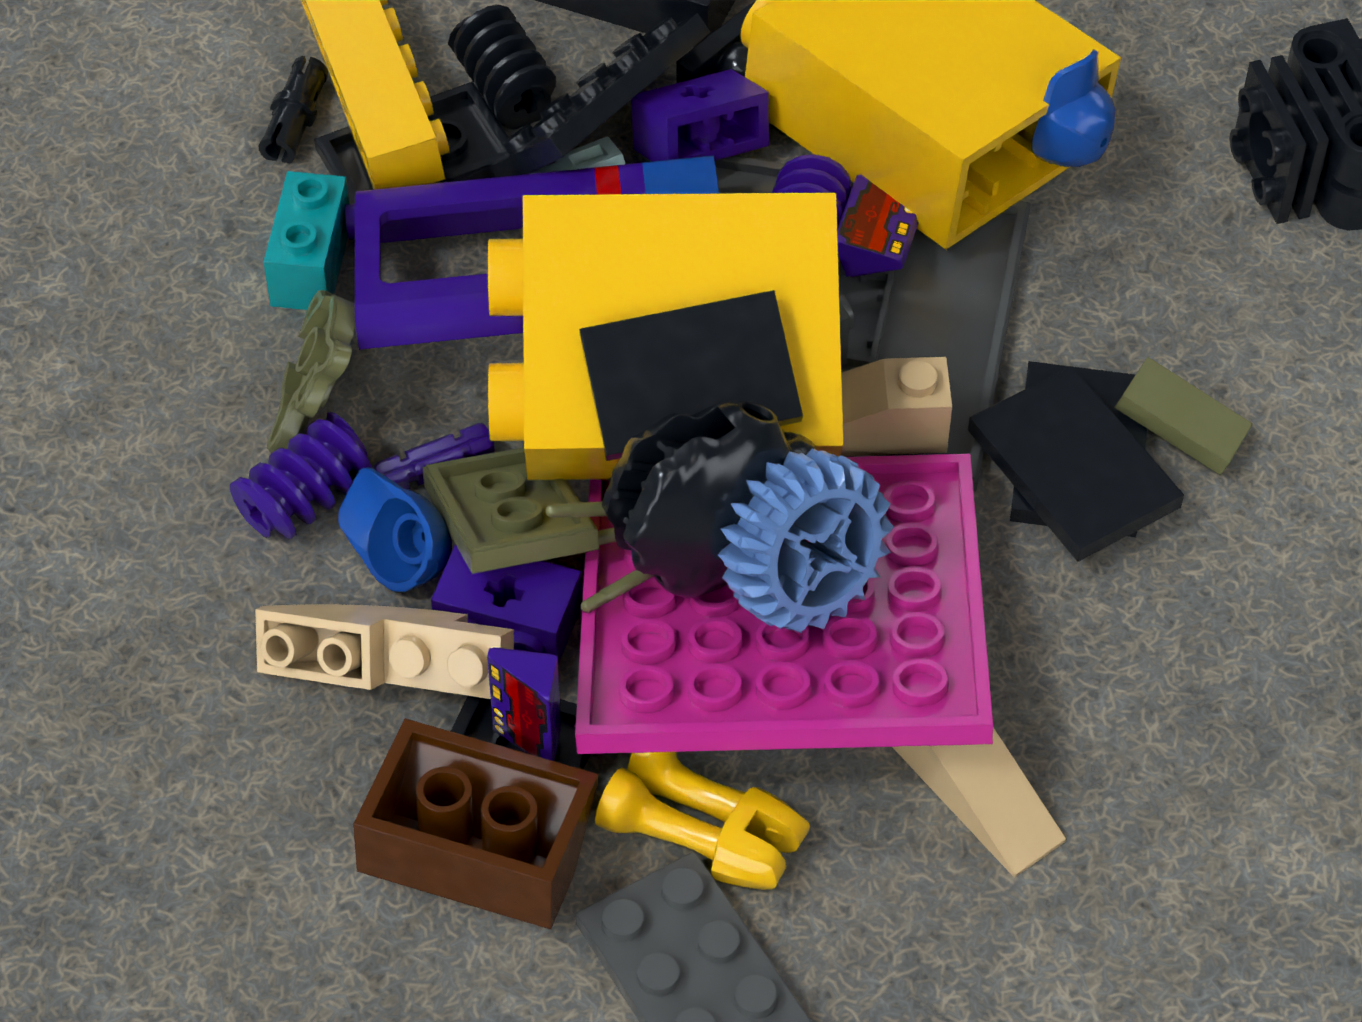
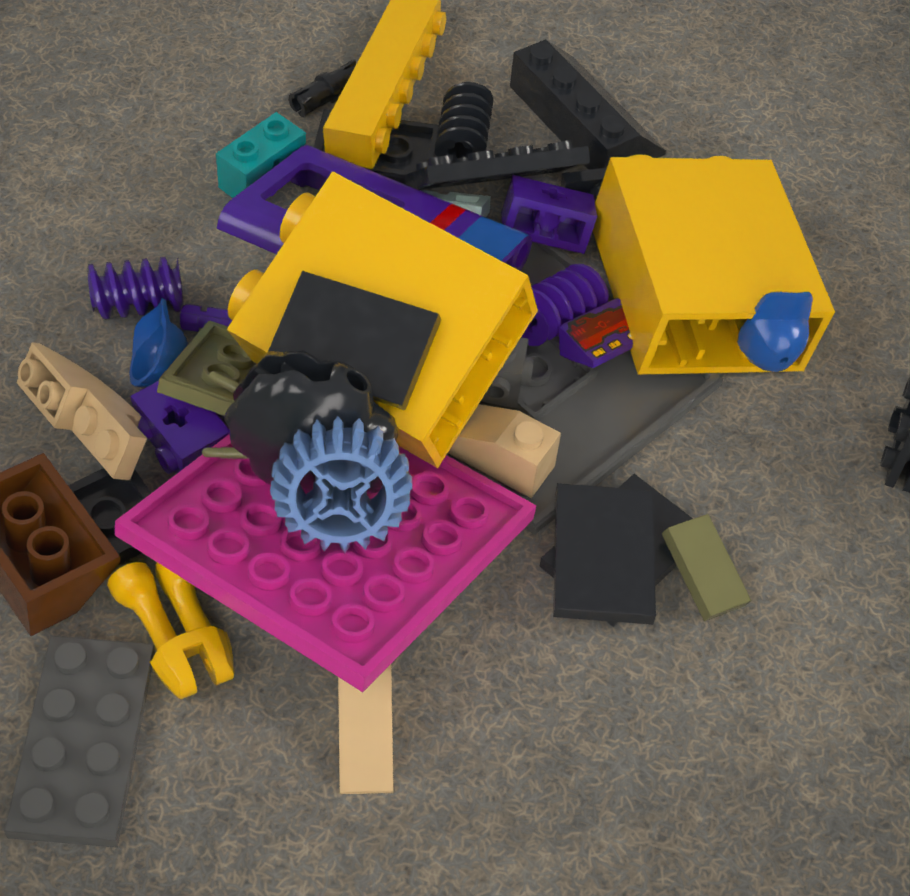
camera: 30 degrees right, 0 degrees up
(321, 361) = (190, 228): olive tile -> none
(526, 699) = (115, 480): slope -> none

